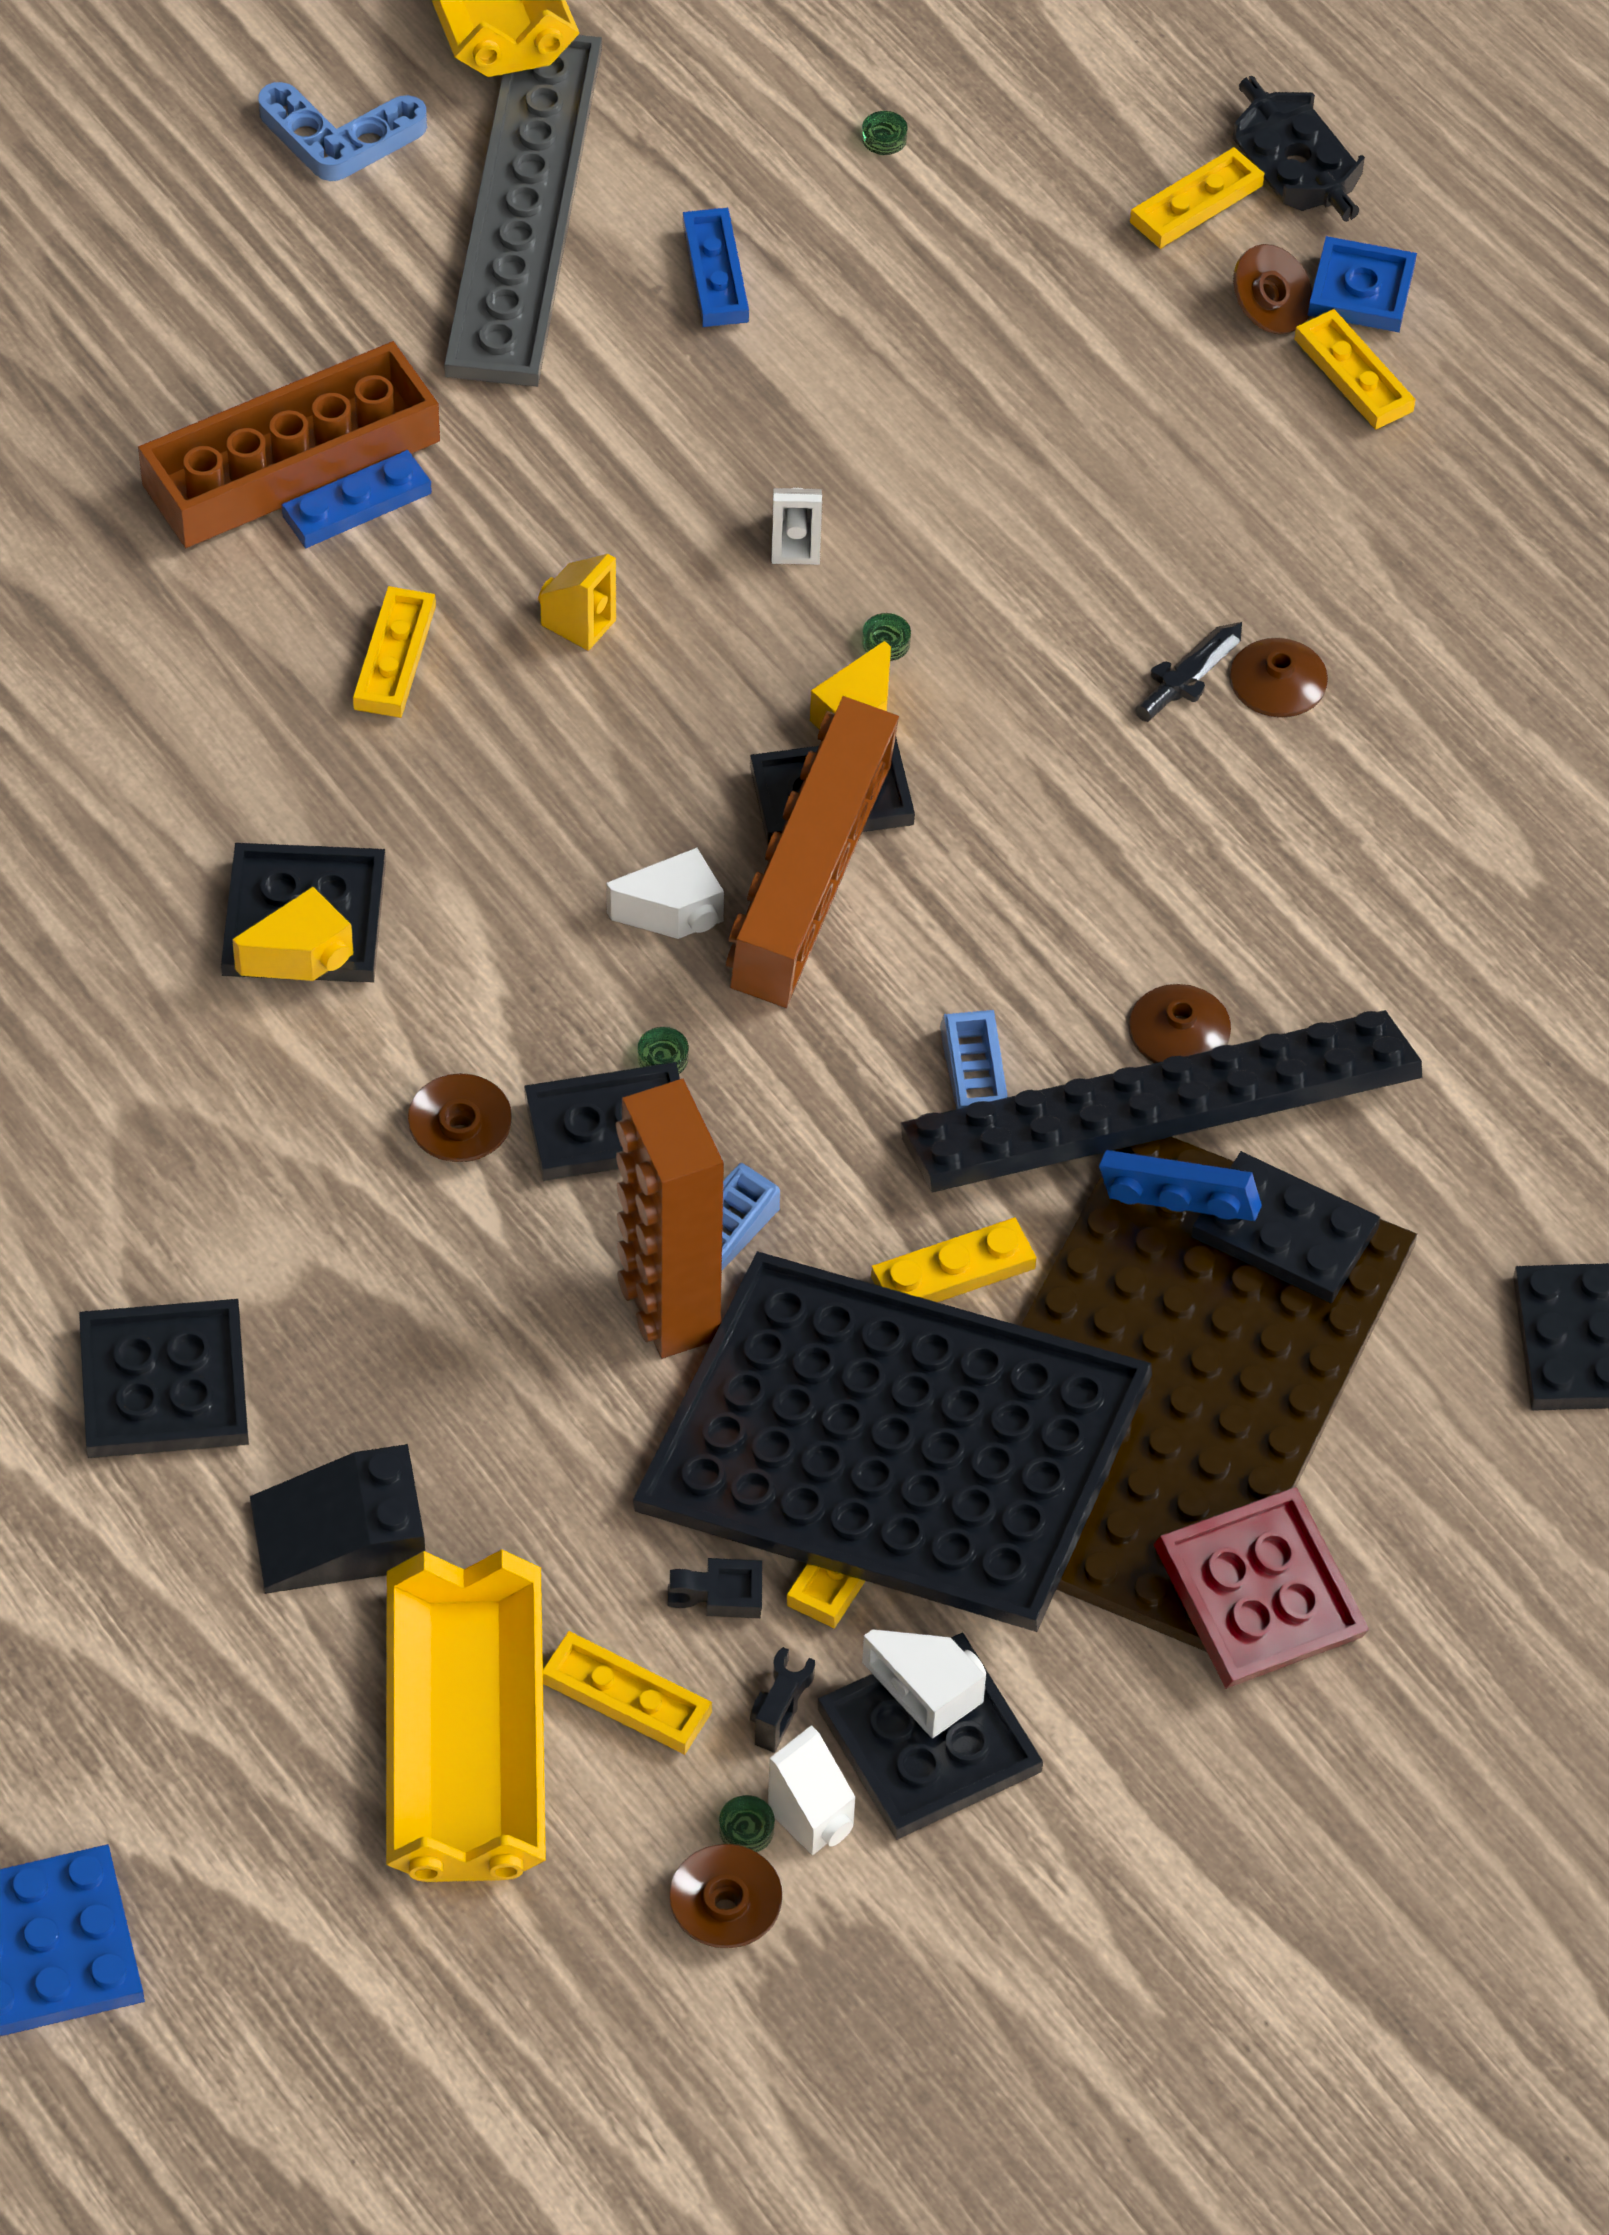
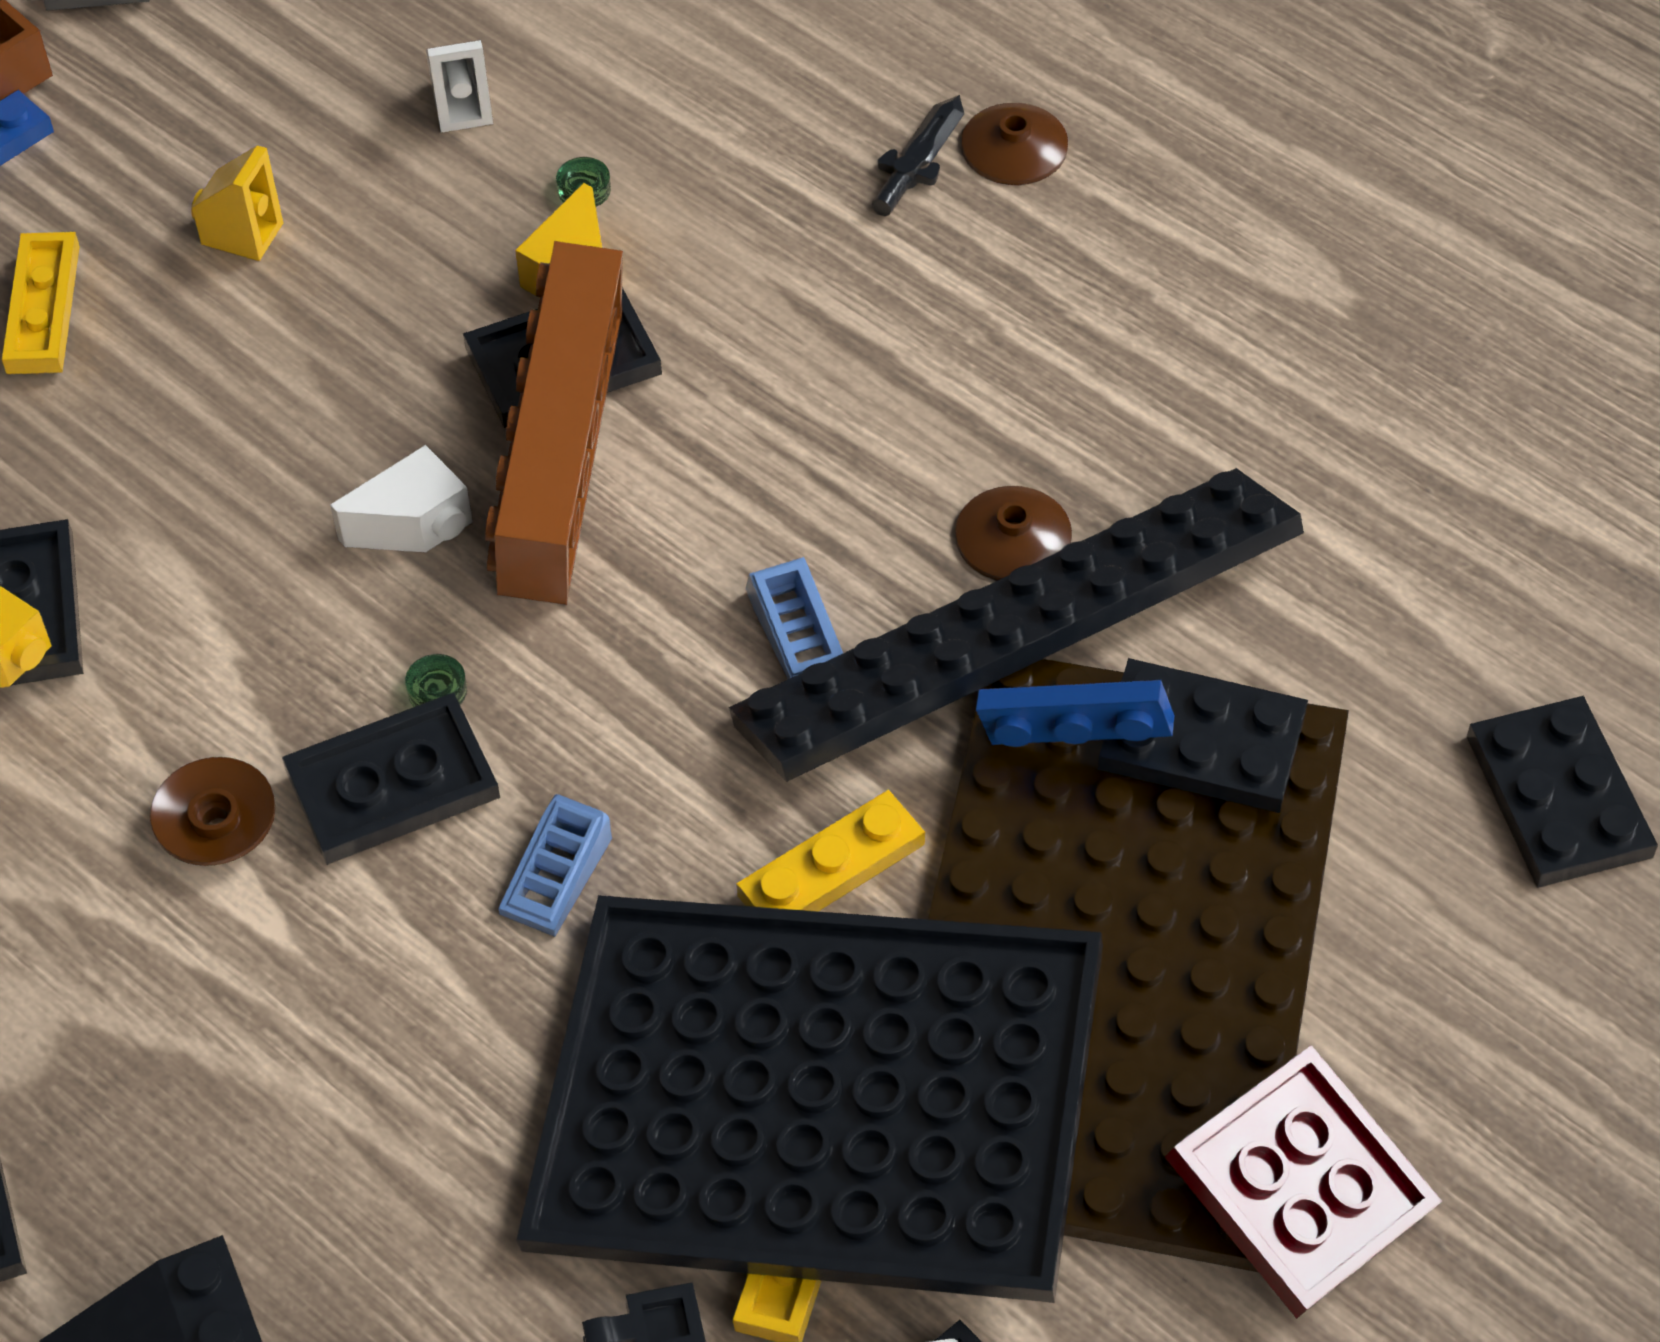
camera: 10 degrees left, 0 degrees up
(670, 1218) = (489, 880): dark orange brick -> none

